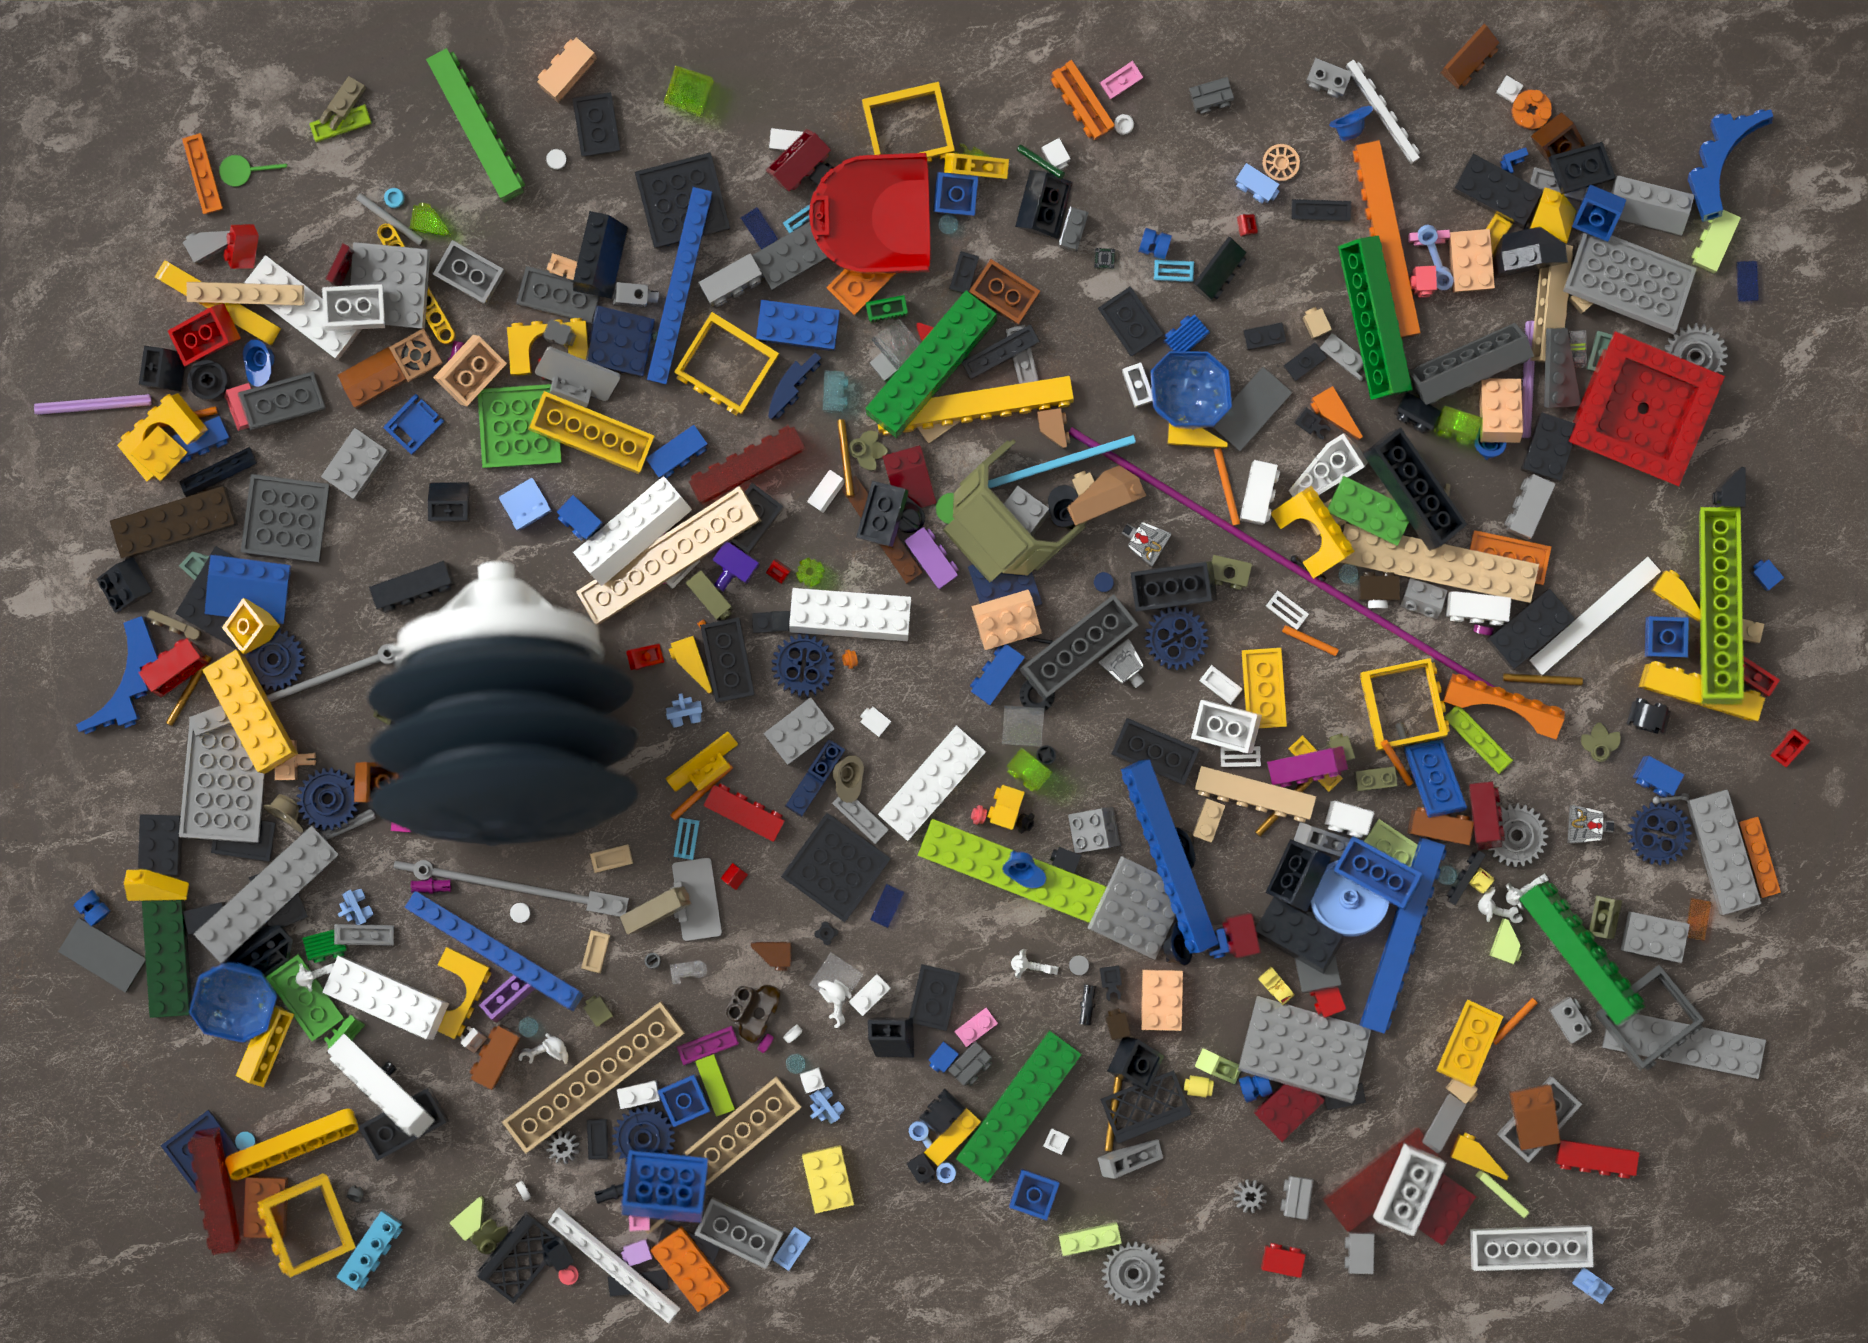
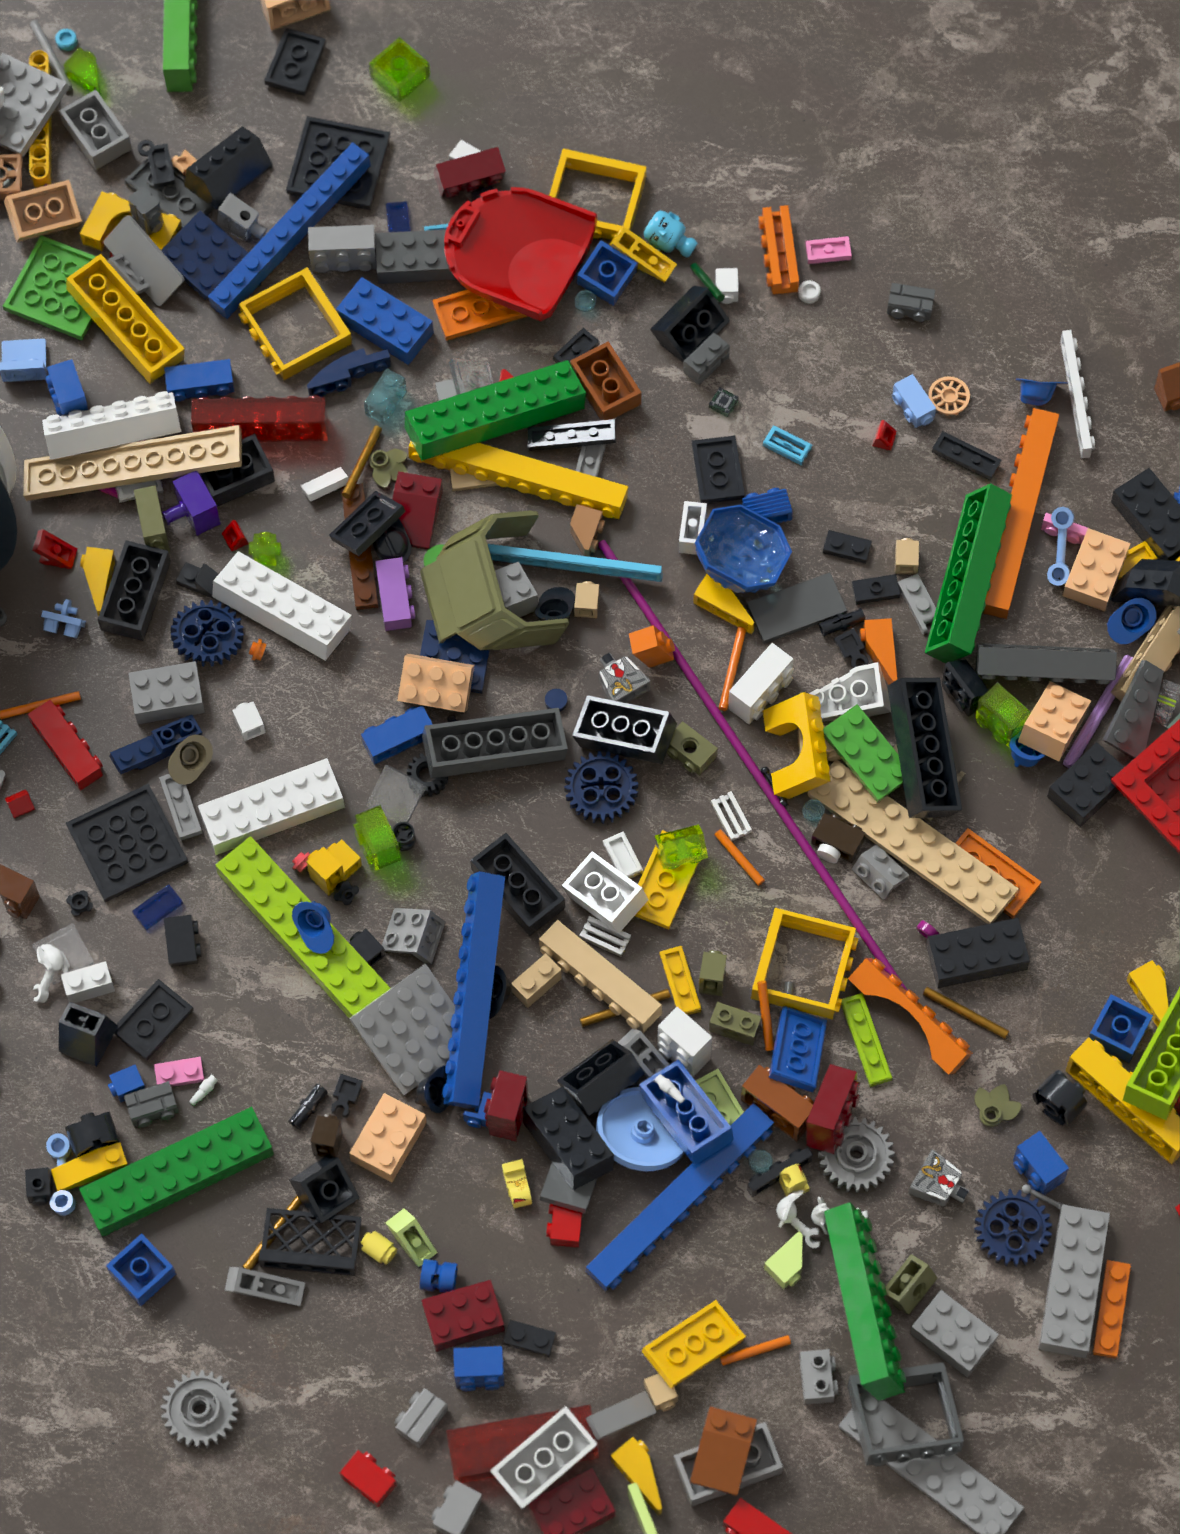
camera: 25 degrees right, 20 degrees down
(539, 277) = (159, 163): none -> black hinge
(556, 159) = (239, 75): white tile -> none
(705, 765) = (52, 679): yellow bracket -> none
(886, 308) = (480, 344): green brick -> none
(922, 925) = (181, 940): none -> black brick
(986, 132) = (667, 233): none -> medium azure piece
(1002, 1030) = (205, 1087): none -> white piece
(1021, 963) = (261, 1027): white piece -> none
(1056, 1141) = (196, 1229): white plate -> none
(1079, 965) = (321, 1062): light grey tile -> none
(1089, 1238) = (173, 1348): yellowish green brick -> none
(1109, 492) = (602, 612): medium nougat wedge -> none
(1124, 664) = (532, 785): torso -> none
(1155, 243) = (781, 408): blue wheel -> none
(1159, 505) = (651, 646): none -> orange brick
(1220, 270) = (833, 458): black slope -> none
(1257, 1197) = (379, 1389): light grey gear -> none
(1266, 661) = (681, 847): none -> clear neon green brick
(1302, 394) = (842, 622): none -> black pin
(1304, 1049) = (511, 1261): light grey plate -> none
(1307, 765) = (669, 968): magenta brick -> none
(1323, 1141) = (479, 1368): none -> blue brick
(1329, 78) = (1037, 339): light grey brick -> none
(1359, 864) = (668, 1087): none -> white piece
(1423, 281) = (1037, 562): coral brick -> none
(1478, 608) = (932, 901): white brick -> none
(1519, 292) = (1131, 620): none -> blue piece
(1529, 506) = (1037, 828): light grey brick -> none
(1594, 615) = (1053, 975): white tile -> none
(1698, 918) = (1011, 1341): clear orange tile -> none

